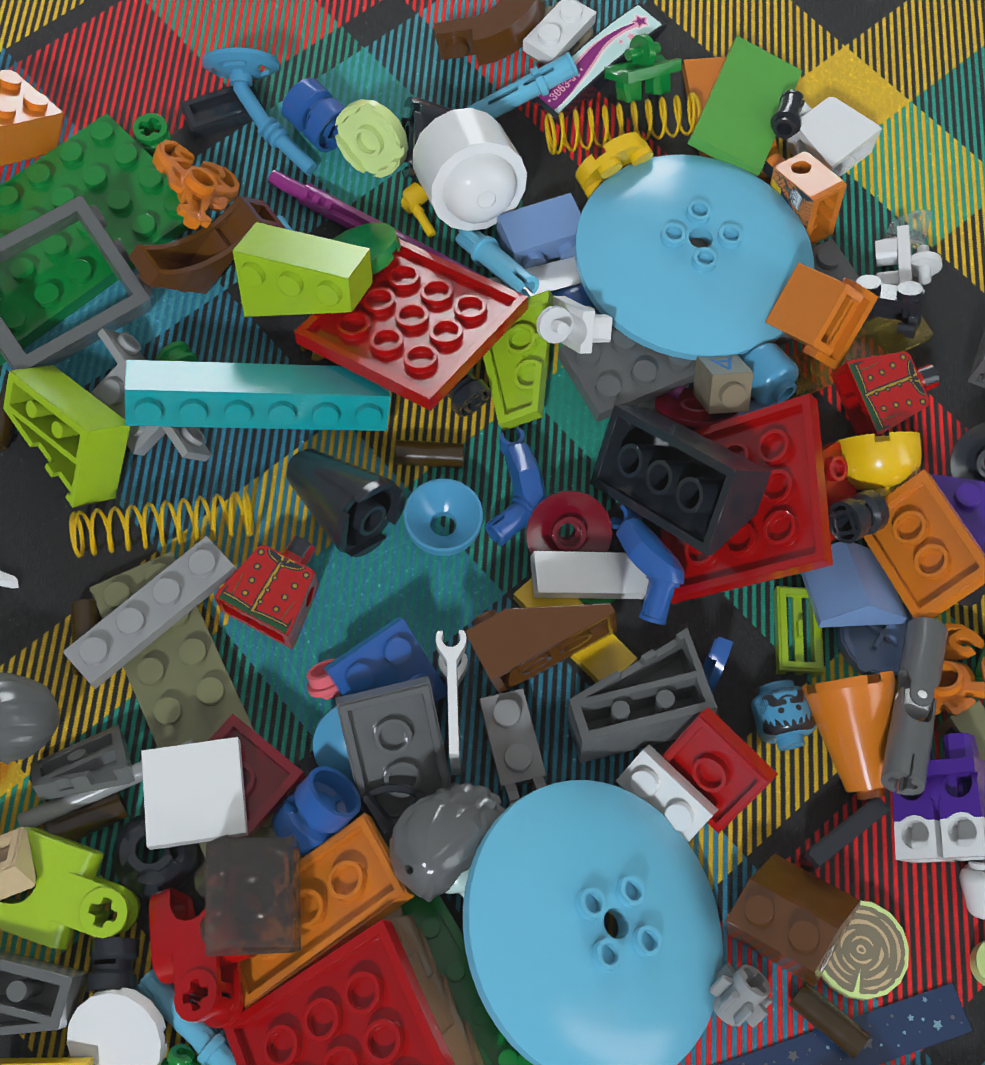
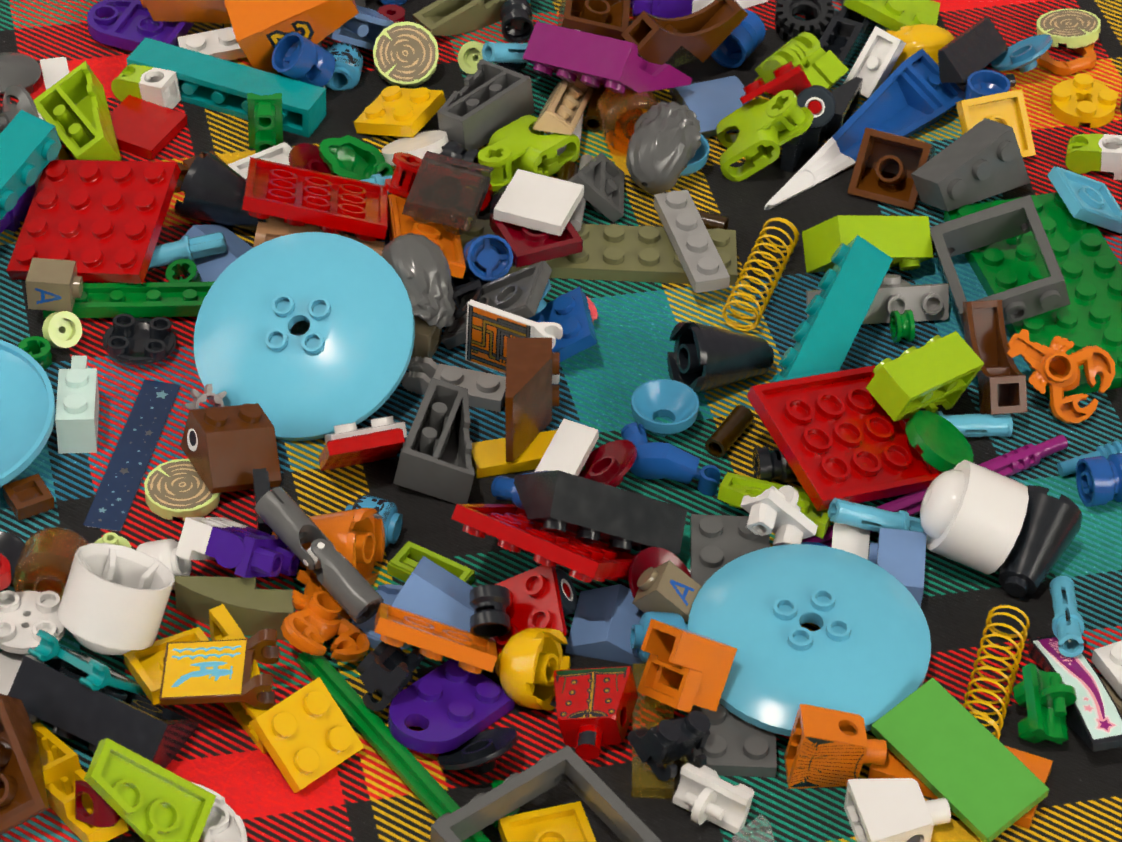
camera: 120 degrees right, 25 degrees down
(272, 591) = (662, 303): red torso -> none
(371, 138) = (1065, 480): yellowish green tile -> none
(620, 152) = (937, 632): yellow plate -> none
(716, 660) = (440, 507): blue tile -> none
(787, 119) = (924, 770): black pin -> none
(829, 1020) = (152, 449): dark brown axle -> none

